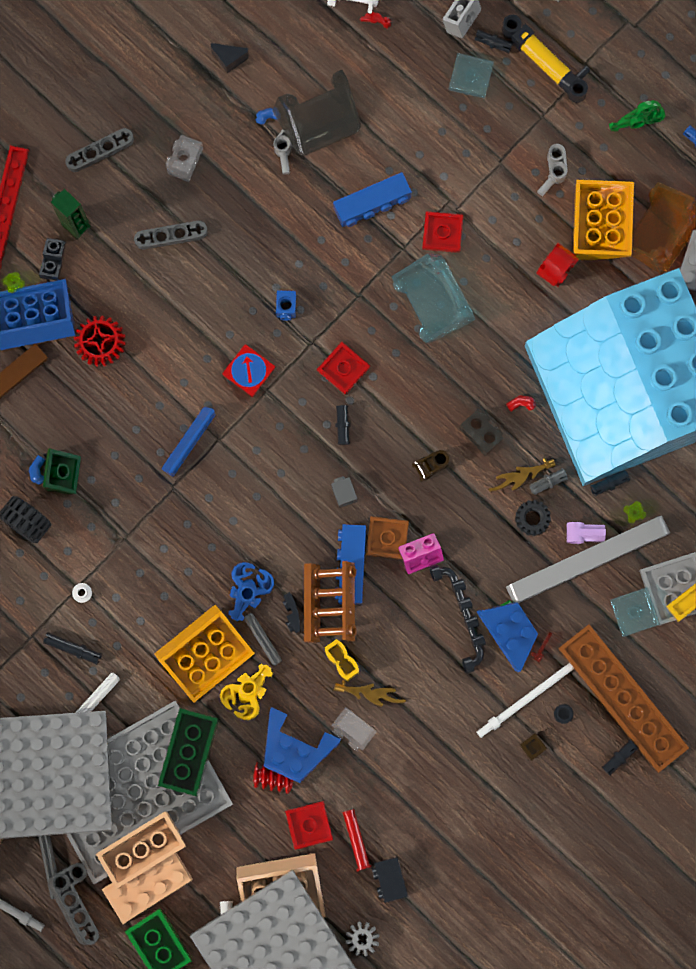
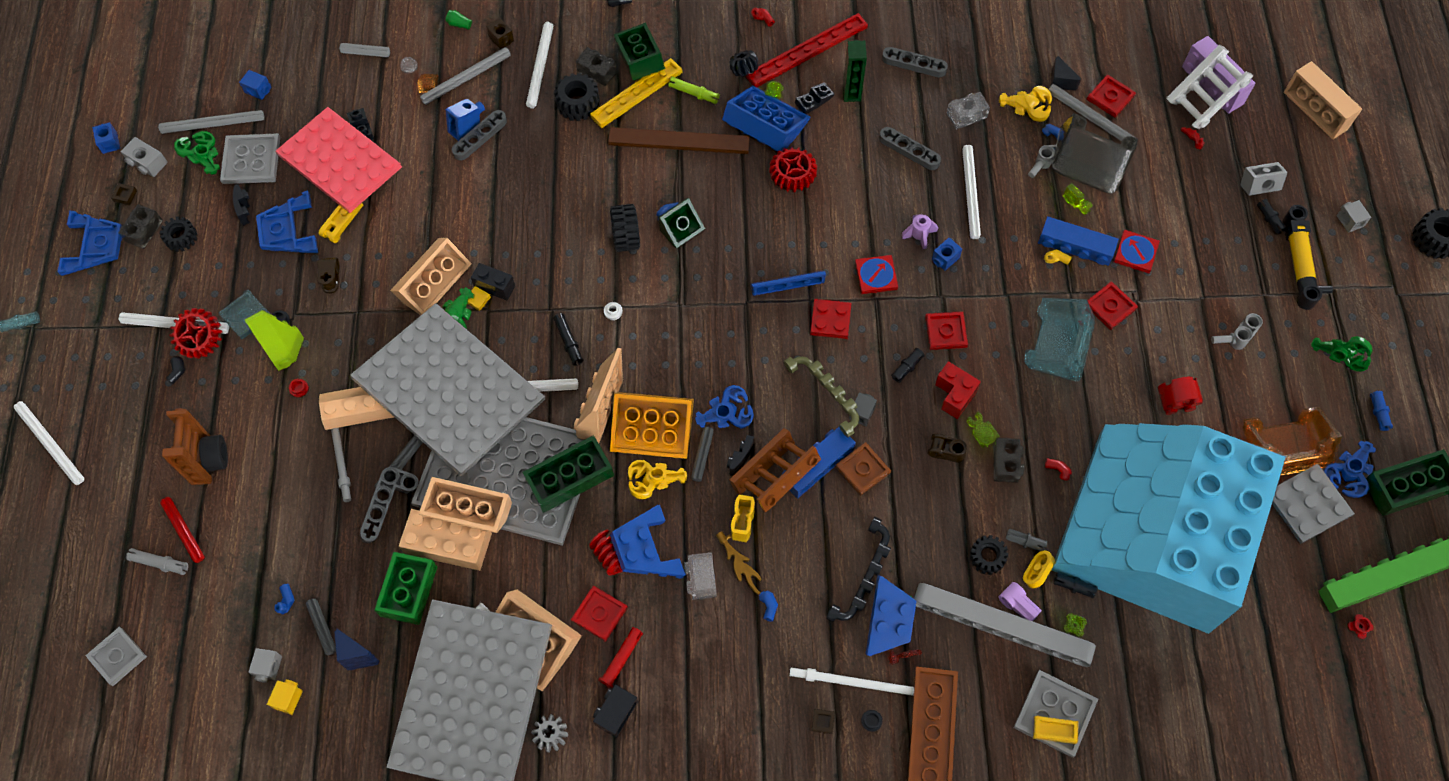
camera: 45 degrees right, 15 degrees down
(150, 674) = (600, 398): none -> light nougat slope
(224, 106) = (1027, 102): none -> yellow animal
(249, 305) = (920, 229): none -> lavender brick
(250, 440) = (830, 318): none -> red plate
(253, 229) = (971, 192): none -> white axle
(281, 38) = (1111, 96): none -> red tile
(282, 71) = (1088, 112): none -> light grey axle
(299, 497) = (836, 392): none -> olive bar
(335, 162) = (1076, 199): none -> clear neon green plate
(367, 226) = (1055, 256): none -> yellow arm
(397, 406) = (960, 387): none -> red brick
(419, 700) = (771, 604): none -> blue arm
(421, 166) = (1136, 251): none -> tile
(421, 553) = (877, 501): dark pink bracket -> none
(445, 425) = (983, 432): none -> clear neon green plate
(471, 75) = (1232, 224): clear light blue plate -> none
(520, 478) = (1006, 519): pearl gold piece -> none
(576, 496) = (1038, 569): none -> yellow plate
(603, 219) = (1247, 394): light orange slope -> none
(635, 612) = (1004, 698): clear light blue plate -> none

